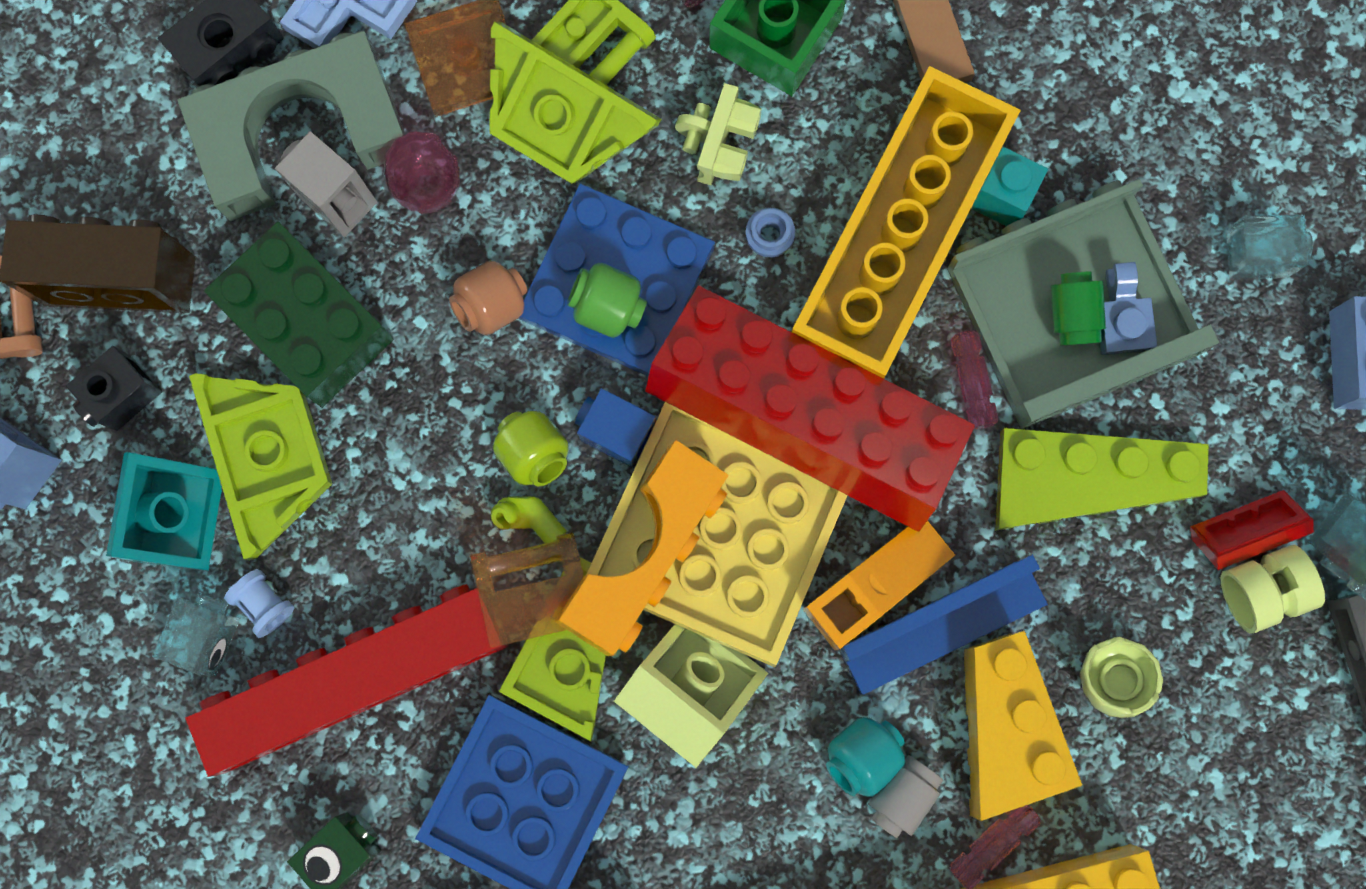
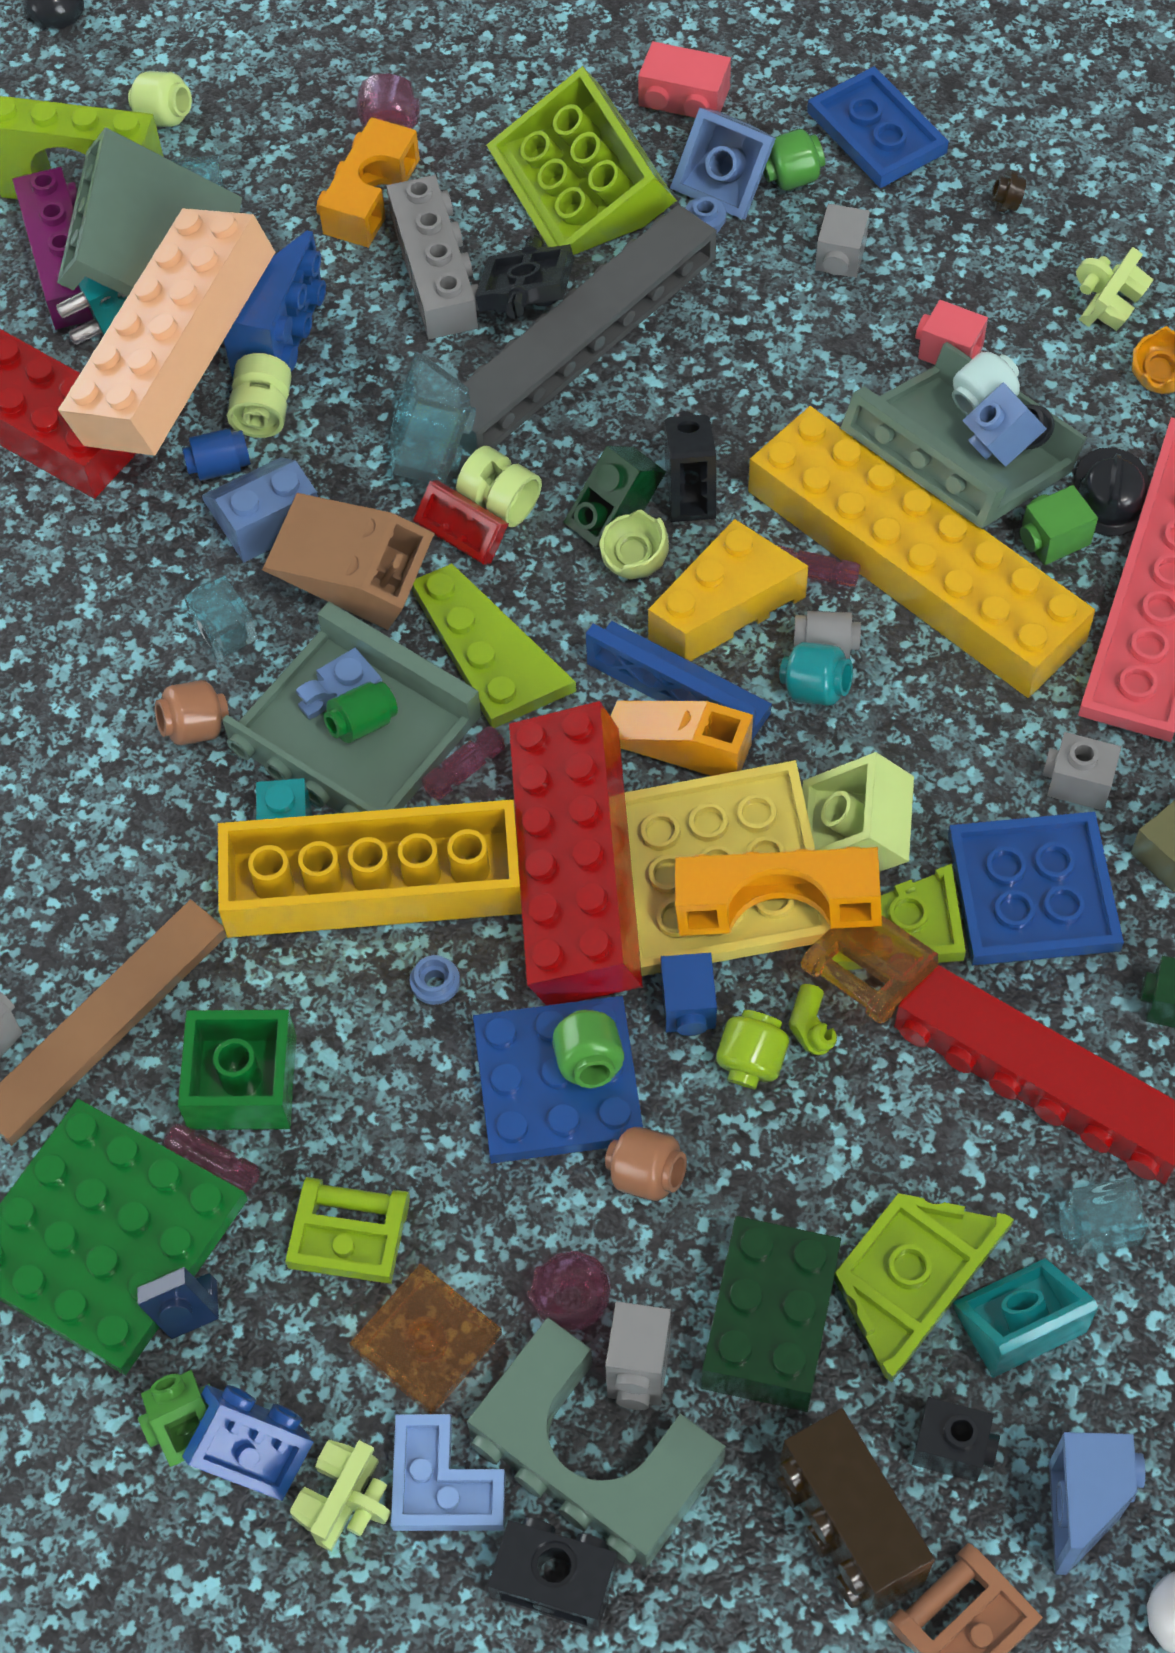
camera: 125 degrees left, 20 degrees down
(259, 603) = (1039, 1186): light blue bush -> none
(558, 110) = (435, 1206): lime wing -> none
(730, 116) = (374, 1069): yellowish green hips -> none
(1172, 166) = (190, 712): none -> nougat head
(1188, 794) = (690, 447): none -> black torso
(1199, 701) = (616, 487): none -> dark green slope
(1265, 388) = (349, 556): none -> medium nougat slope

